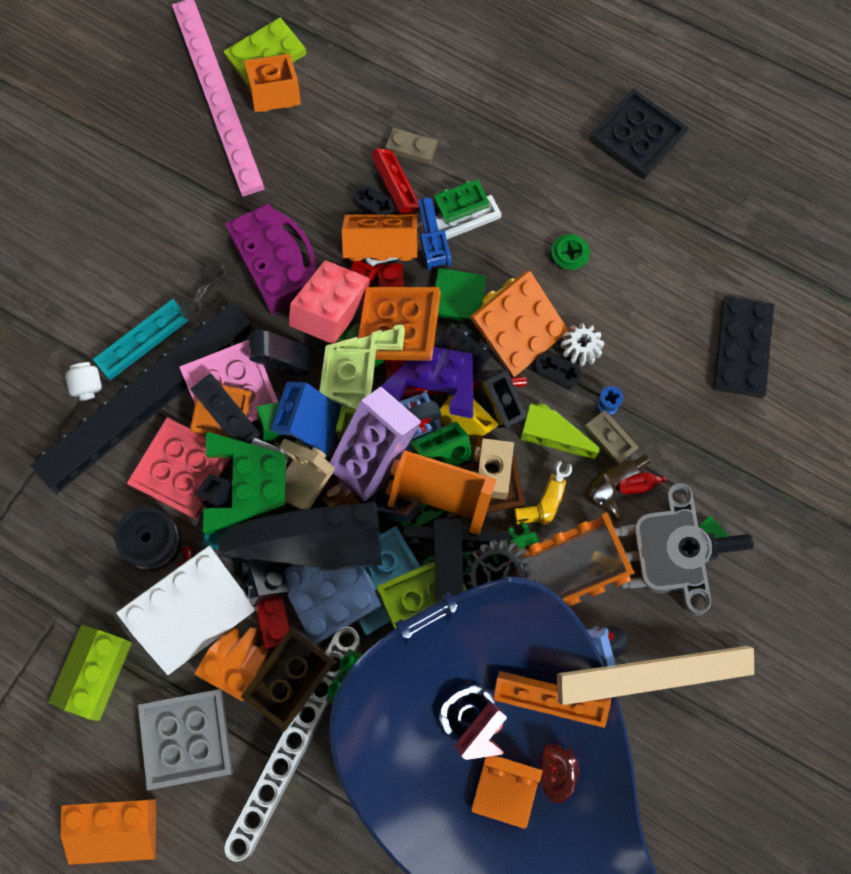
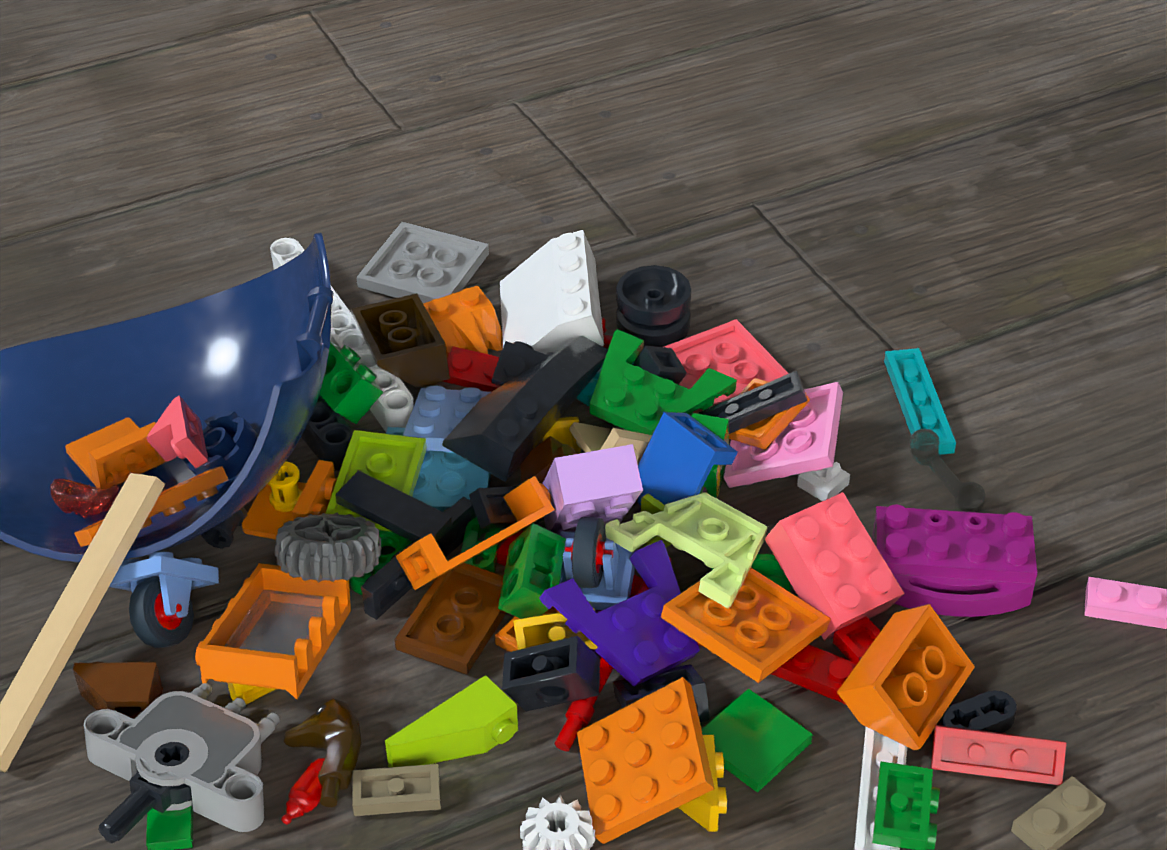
camera: 125 degrees right, 30 degrees down
(83, 381) = (895, 331): white head -> none
(90, 673) = (538, 219): lime slope -> none
(109, 831) = (397, 193): orange slope -> none
(137, 401) = (830, 358): black brick -> none
(278, 353) = (794, 477): black beam -> none
(433, 242) = (856, 739): blue connector -> none
(499, 454) = (463, 616): tan brick -> none
(525, 539) = (353, 615): green tile -> none
(550, 500) = (371, 662): yellow arm -> none
(556, 371) = (545, 784): black beam -> none
(613, 395) = (447, 810): blue bush -> none
(661, 626) = (119, 686): none -> reddish brown slope

